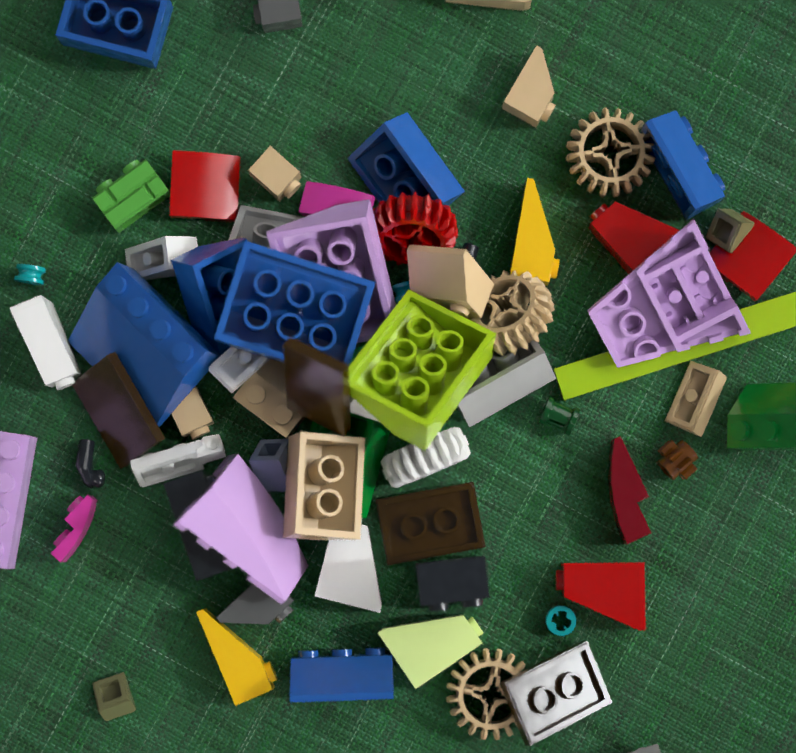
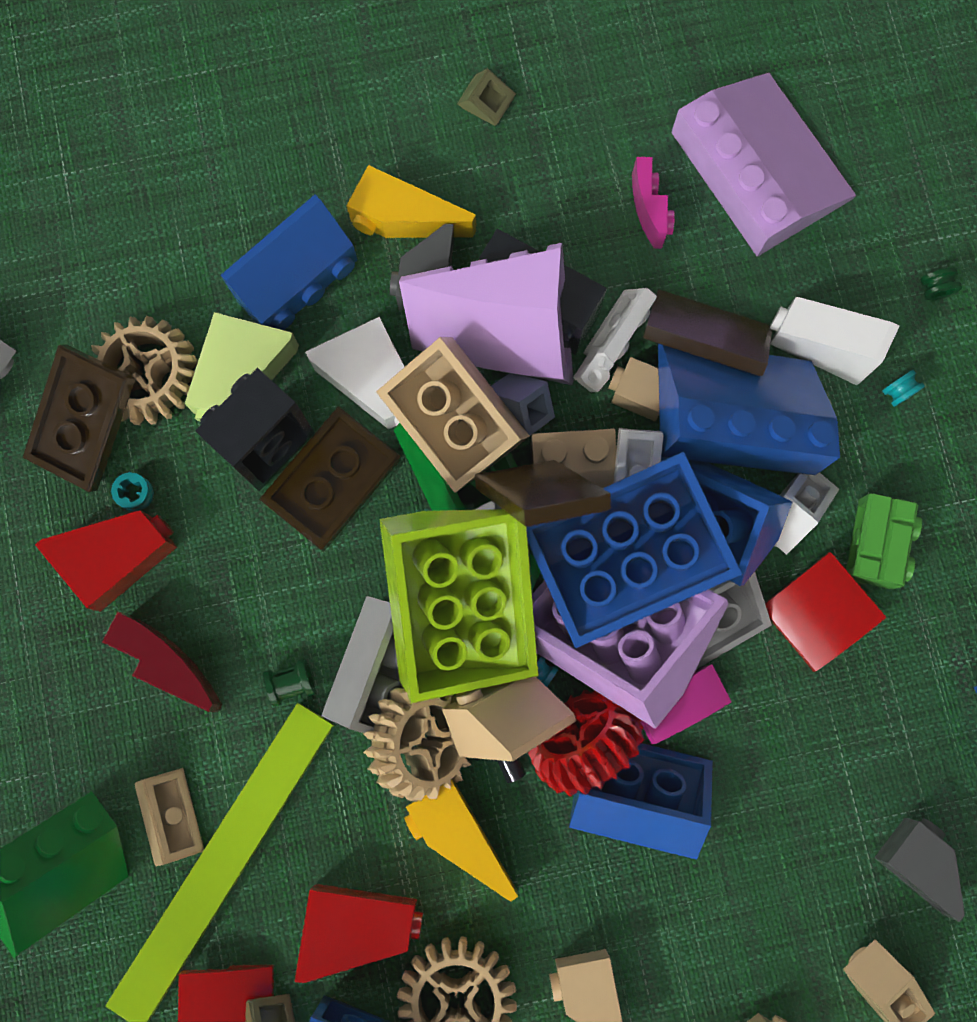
camera: 135 degrees right, 5 degrees down
(85, 467) = (691, 263): black arm -> none
(276, 174) = (766, 681): tan brick -> none
(414, 463) = (364, 548): white gear -> none
(668, 303) = (264, 891): lavender wedge -> none
(677, 460) = (135, 738): reddish brown gear -> none

